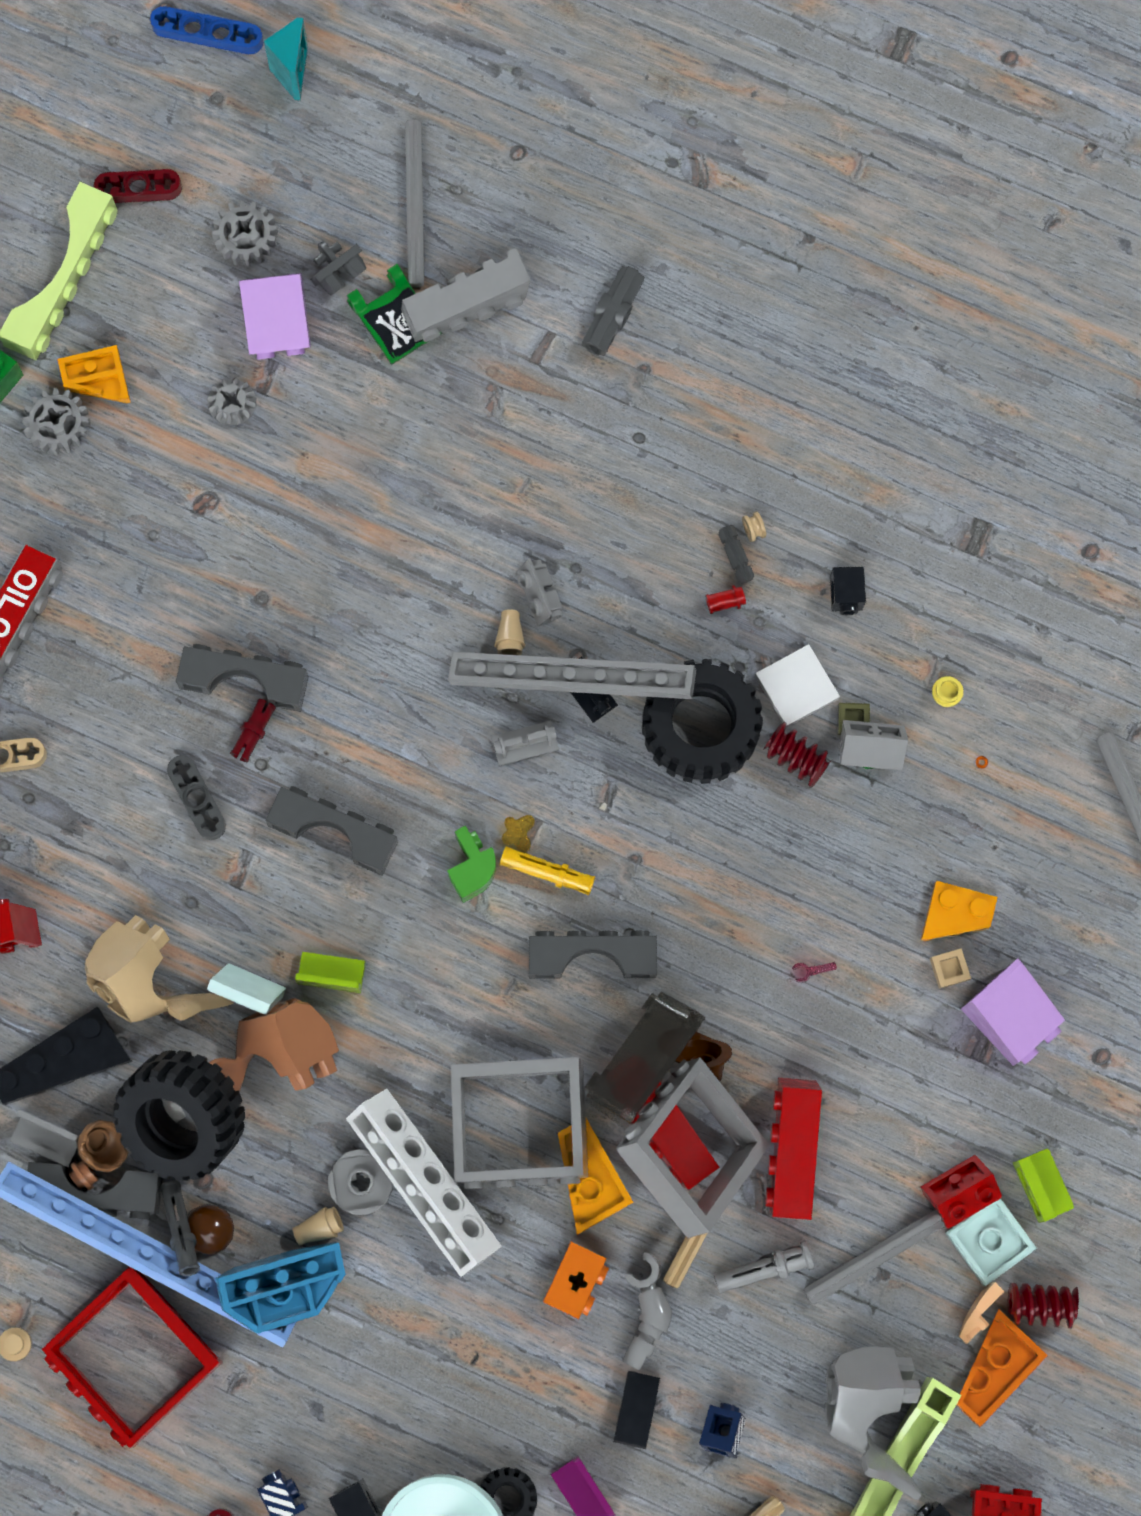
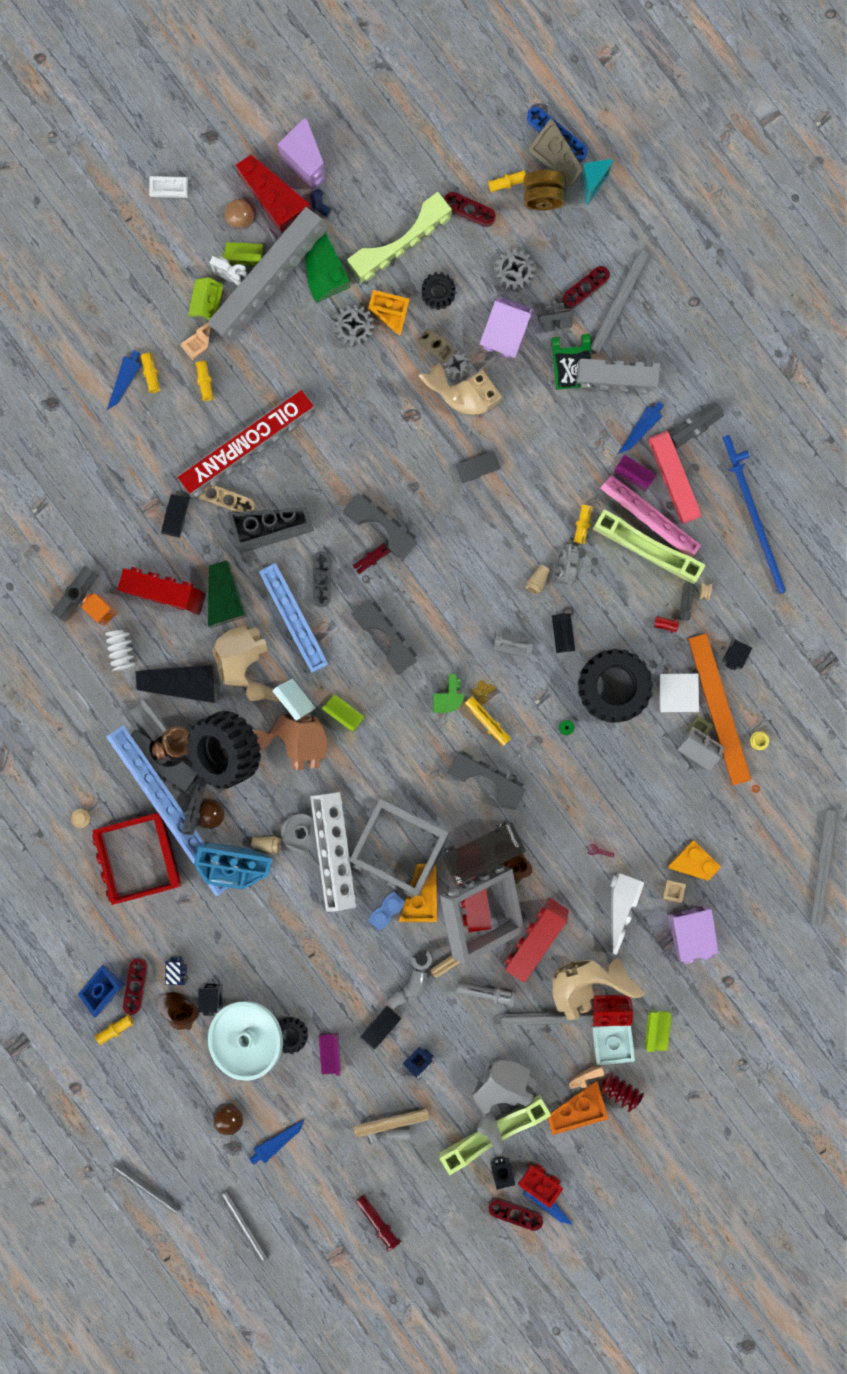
camera: 35 degrees right, 10 degrees up
(64, 897) = (223, 596): none -> dark green wedge
(79, 761) = (268, 526): none -> dark grey wedge
(150, 298) = (442, 280): none -> black tyre
(170, 123) = (506, 181): none -> yellow pin
(184, 874) = (293, 618): none -> light blue plate
(189, 388) = (436, 345): none -> dark tan leg
(218, 53) = (556, 153): none -> dark tan wing
(228, 106) = (544, 190): none -> pearl gold wheel
(276, 431) = (472, 396): none -> tan hips
(338, 523) = (478, 466): none -> dark grey slope
(356, 194) = (593, 274): none -> dark red beam
(531, 525) = (583, 524): none -> yellow pin
(541, 346) = (645, 423): none -> blue bar
(552, 1216) = (382, 914): none -> medium blue brick
(564, 419) = (635, 473): none -> magenta panel
(572, 675) = (558, 624): light grey plate -> none
(576, 1260) = (389, 935): orange brick -> none
(620, 464) = (650, 516): none -> bright pink plate
(623, 395) = (674, 477): none -> coral beam
(669, 813) = (569, 731): none -> green piece
(685, 508) = (661, 555): none -> yellowish green arch
(704, 339) = (737, 469): none -> blue piece
(797, 754) = (657, 731): dark red piece -> none
(867, 678) = (719, 709): none -> orange tile
(883, 1010) = (624, 895): none -> white wedge
(883, 1177) = (574, 983): none -> tan hips

